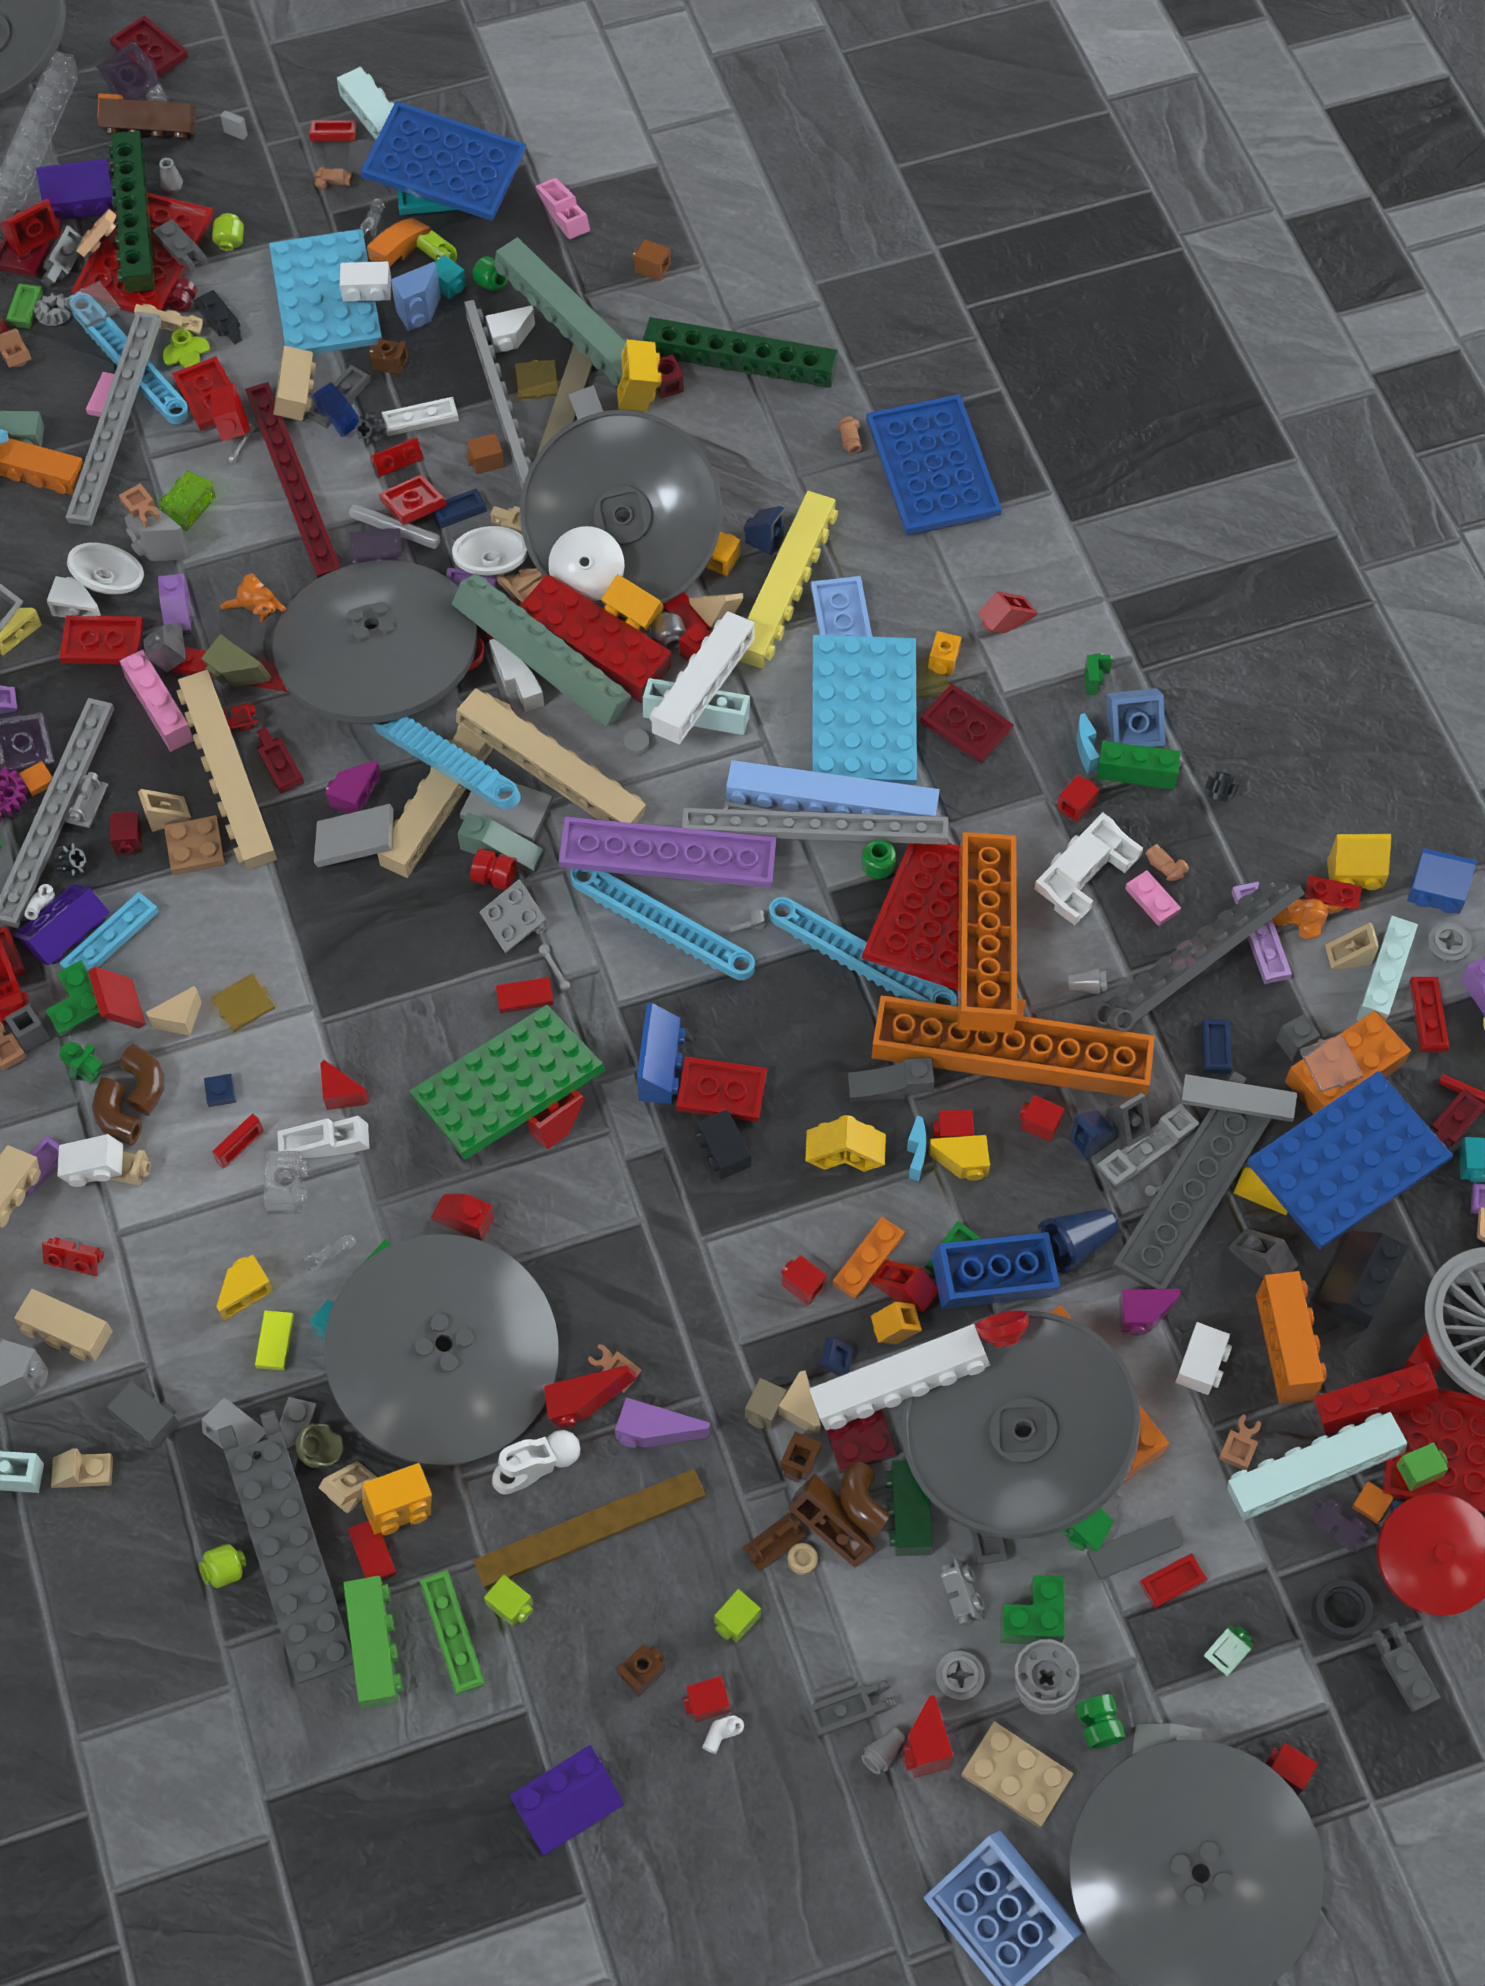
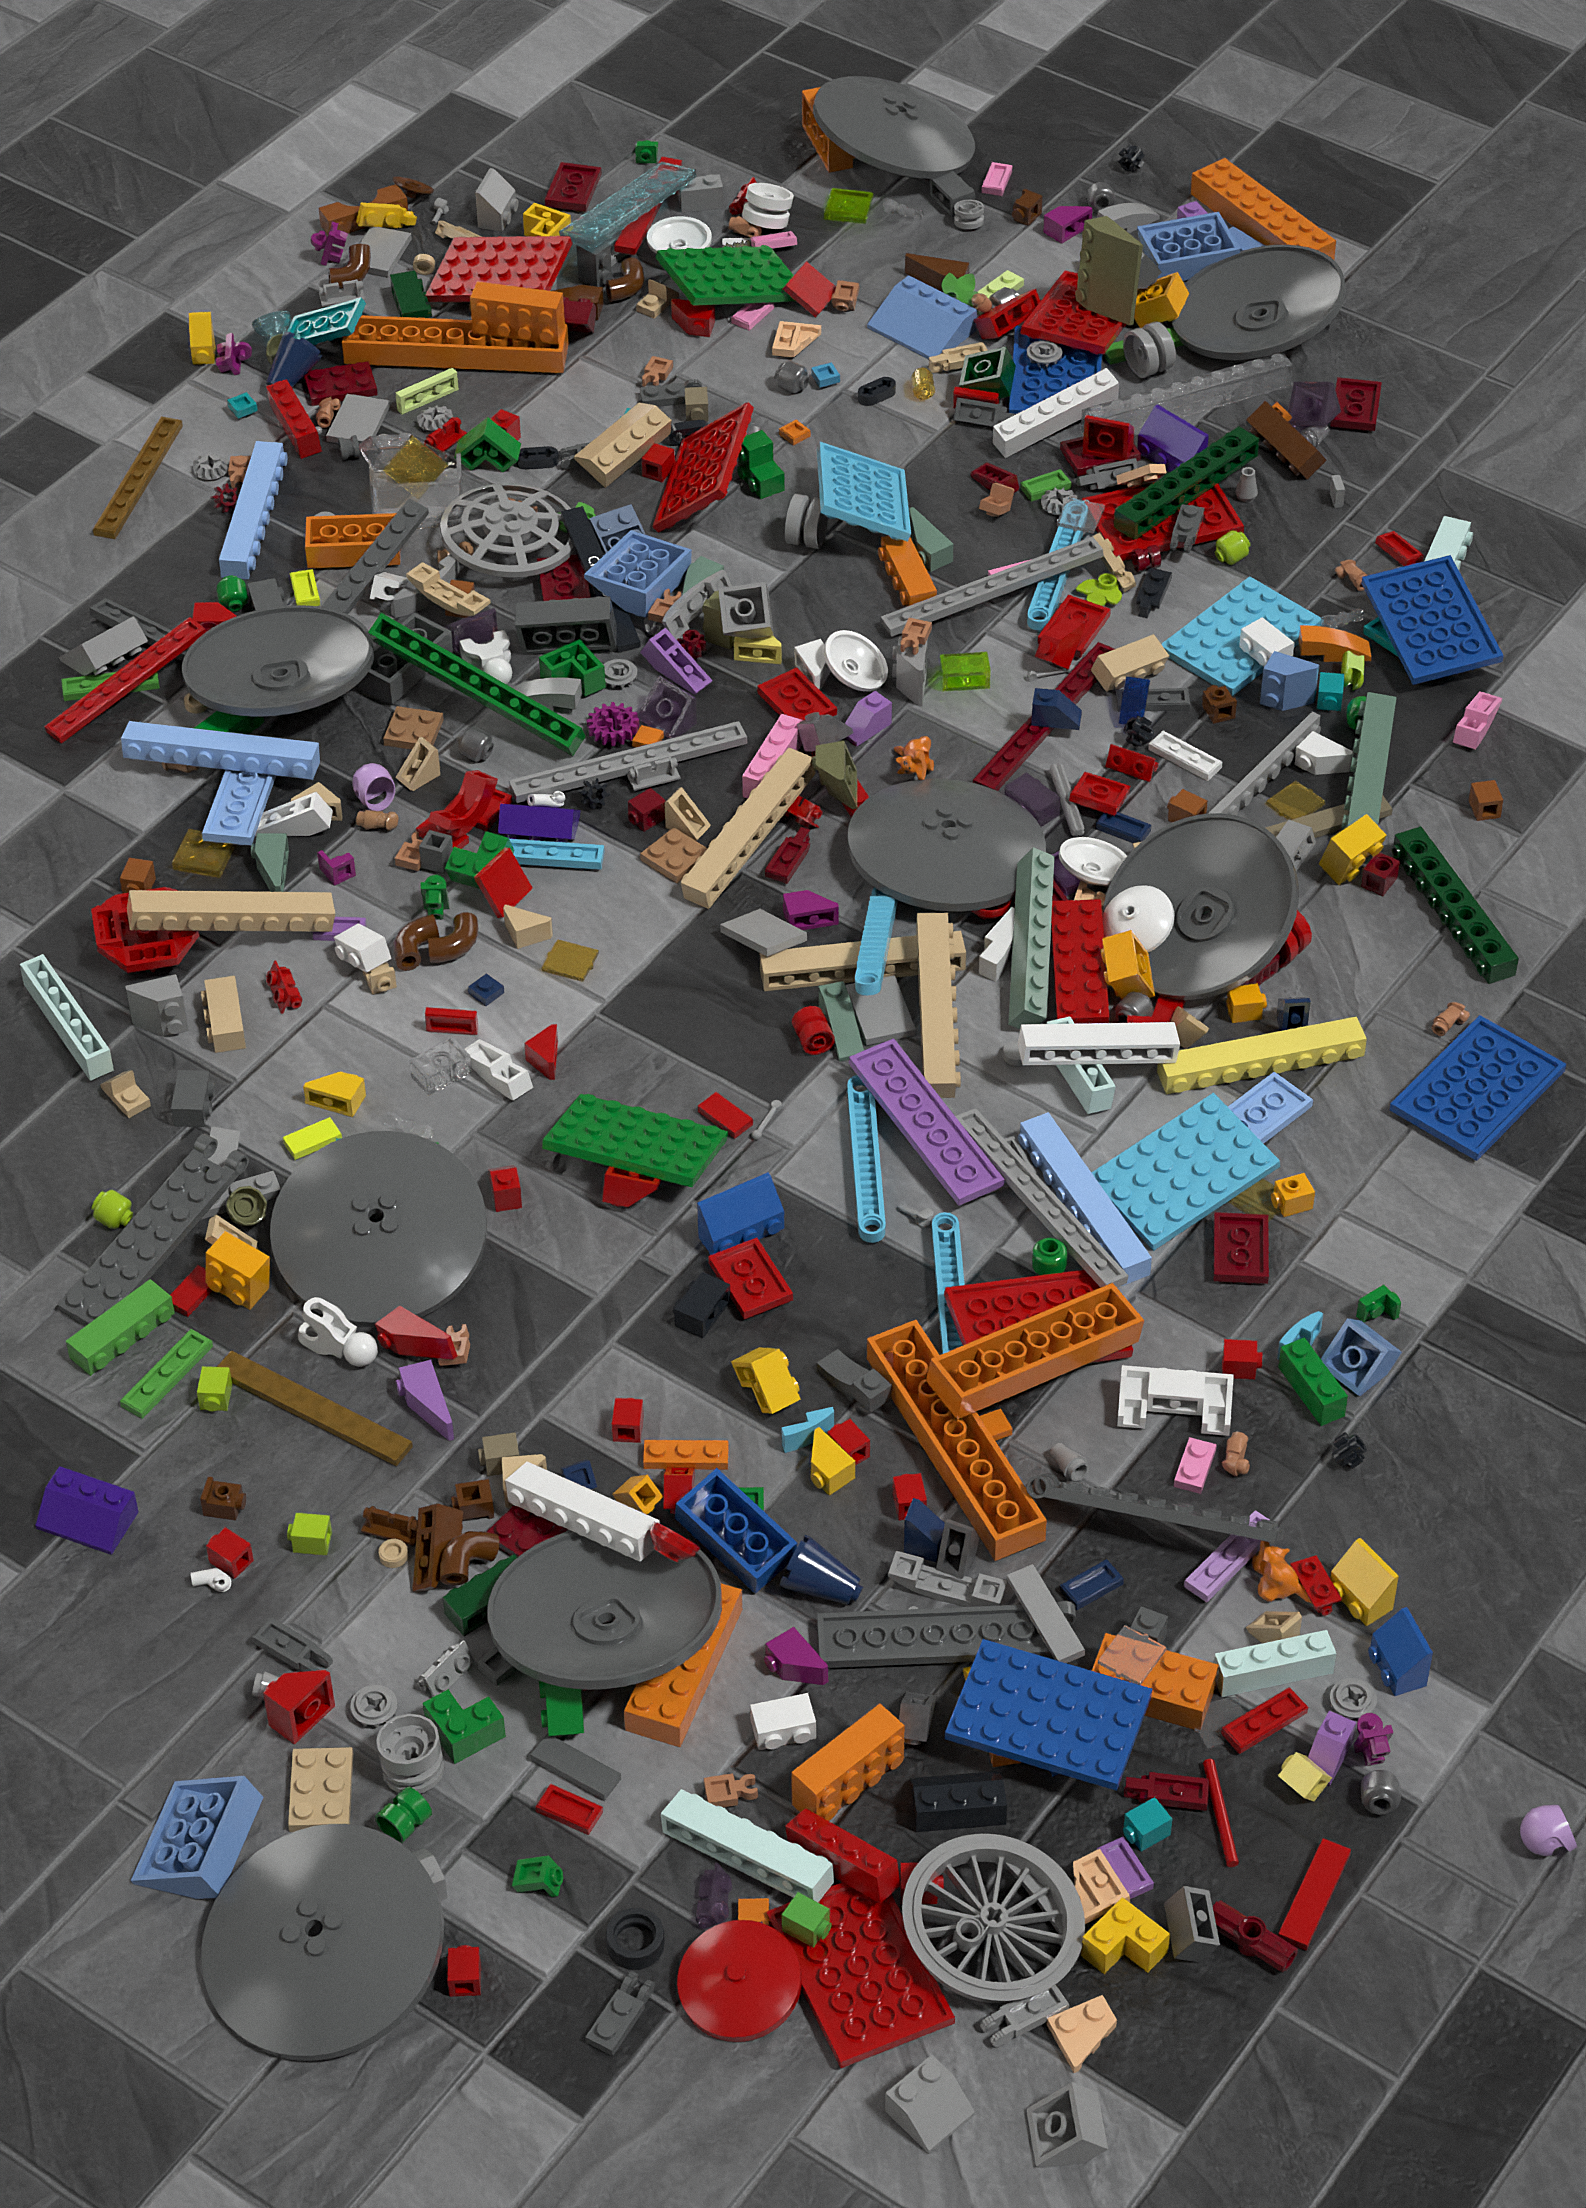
camera: 55 degrees right, 15 degrees down
(299, 469) = (1054, 710): none -> dark blue slope
(513, 916) = (787, 1068): light grey hinge -> none
(1006, 612) = (1377, 1213): red slope -> none

